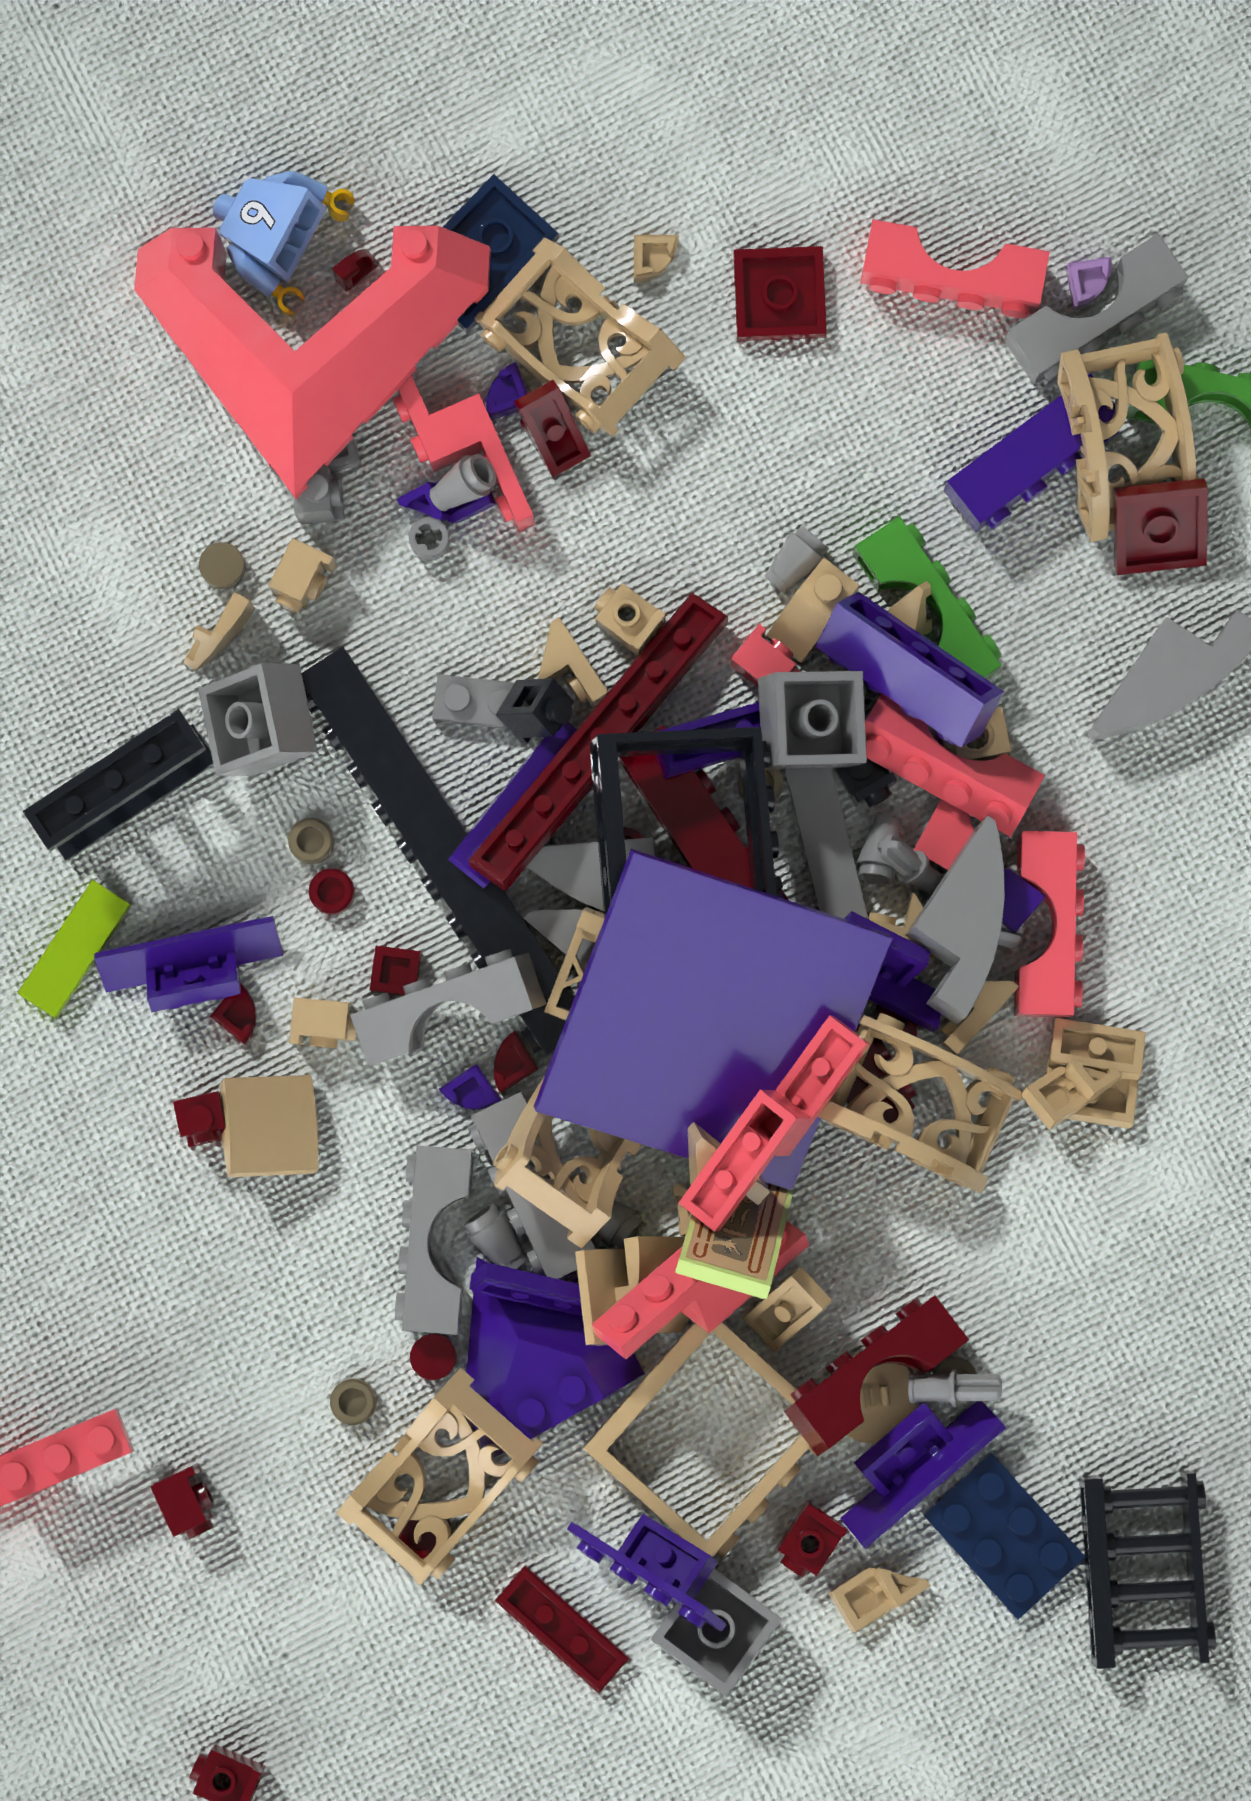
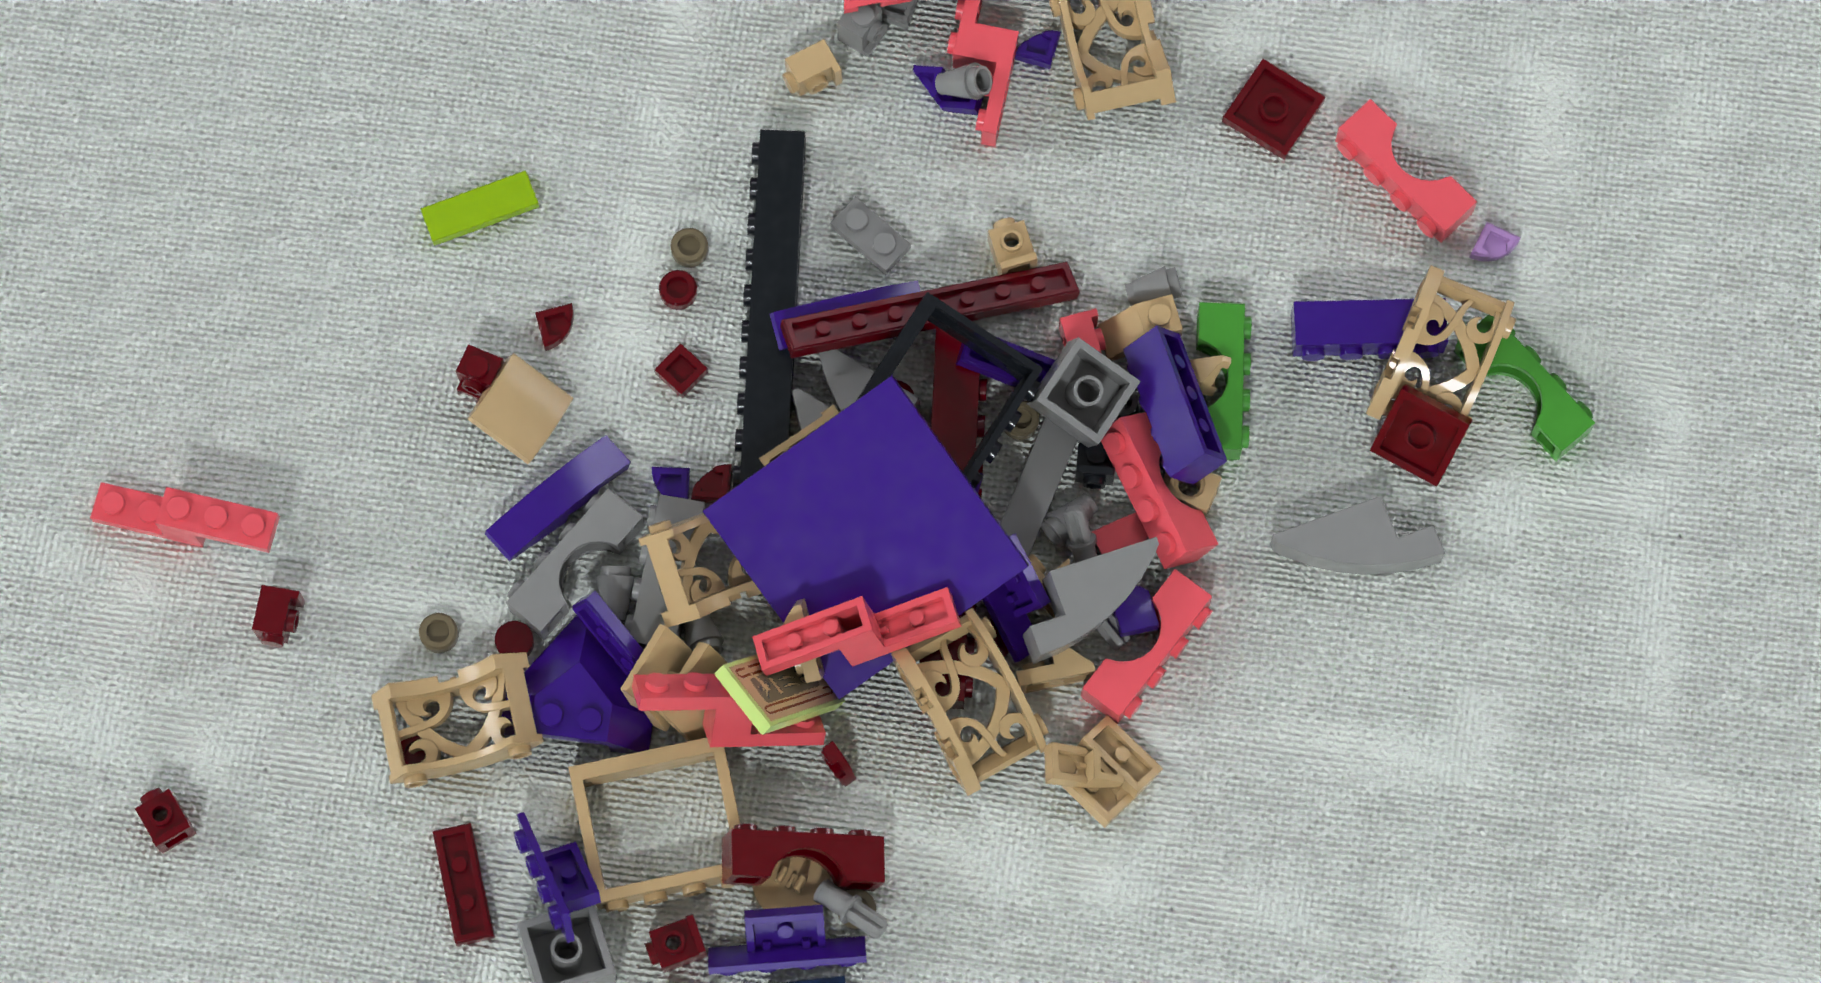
camera: 30 degrees right, 10 degrees down
(120, 786) = (589, 117): black fence -> none
(190, 965) = (549, 269): dark purple bracket -> none
(211, 644) = (732, 72): tan slope -> none
(222, 565) = (765, 29): dark tan tile -> none
(257, 719) = (712, 139): light grey brick -> none
(322, 1022) = (606, 367): tan brick -> none
(371, 1187) = (557, 498): none -> dark purple slope
(399, 1025) = (654, 403): light grey arch -> none
(421, 550) = (905, 109): light grey bush -> none
(546, 712) = (903, 267): black brick -> none
(552, 428) = (1052, 89): dark red slope -> none
(565, 656) = (946, 243): tan slope -> none
(653, 255) = (1206, 26): tan tile -> none
(787, 1309) = (777, 777): tan slope -> none
(835, 1252) = (838, 764): none -> dark red tile
(1145, 279) = (1531, 270): light grey arch -> none

